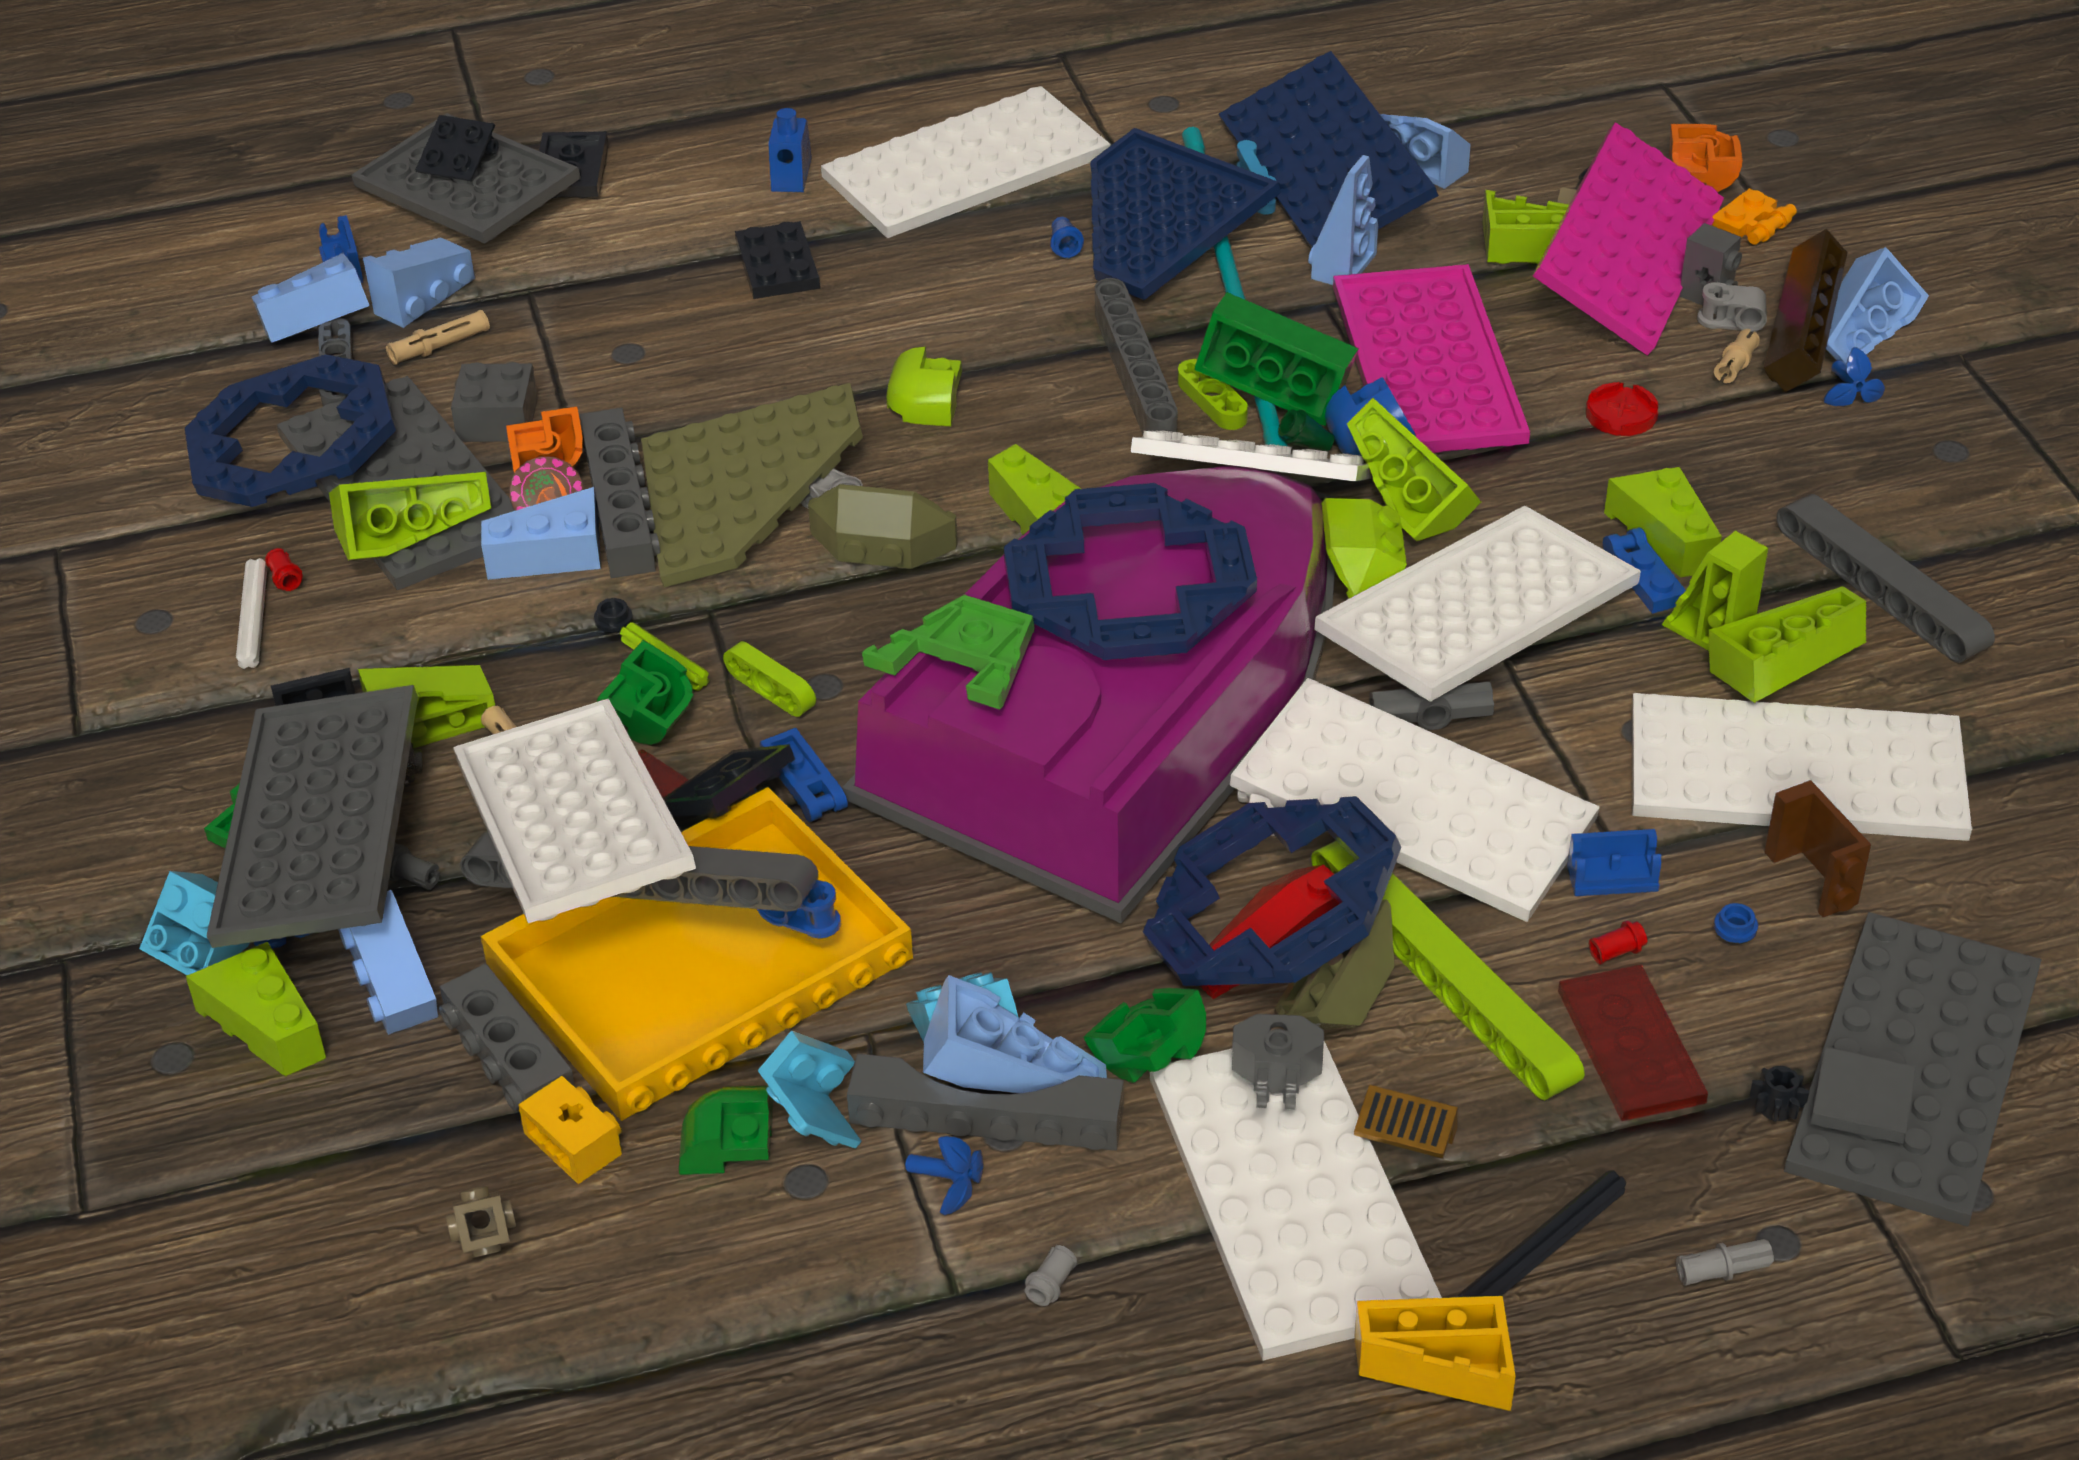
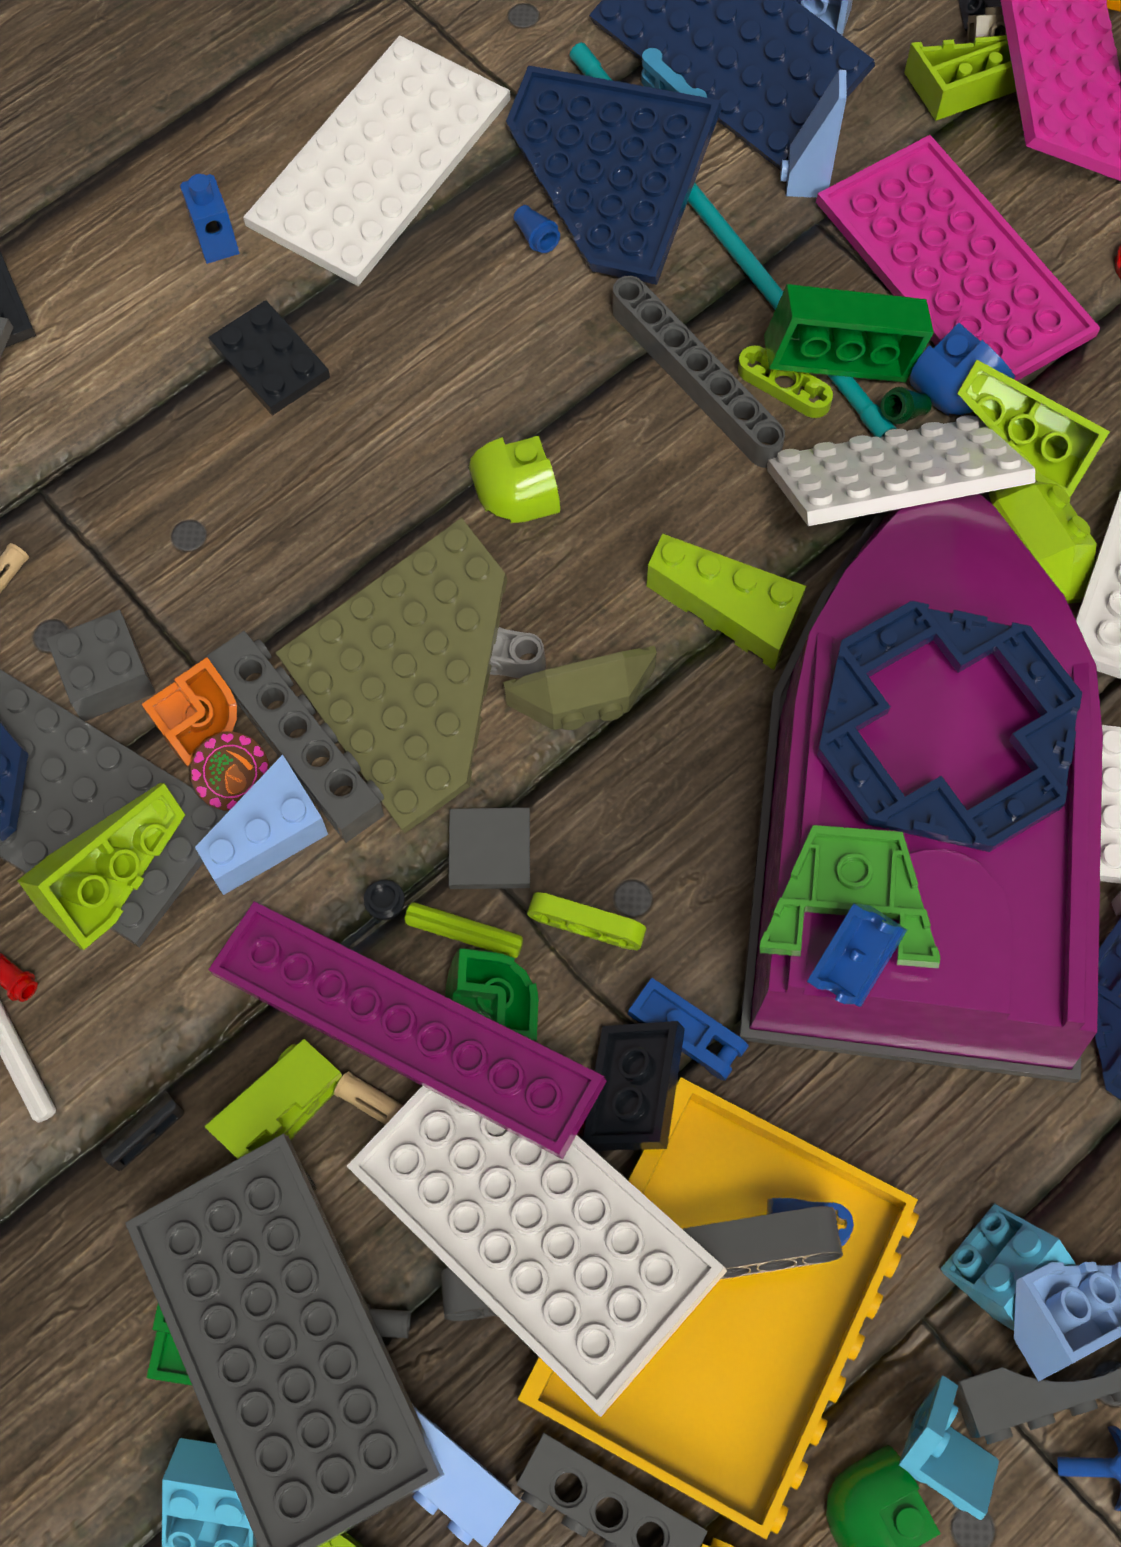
camera: 25 degrees left, 25 degrees up
(566, 675) = (410, 1029): none -> magenta plate
(725, 613) = (489, 848): none -> dark grey tile
(933, 672) = (857, 954): none -> blue hinge

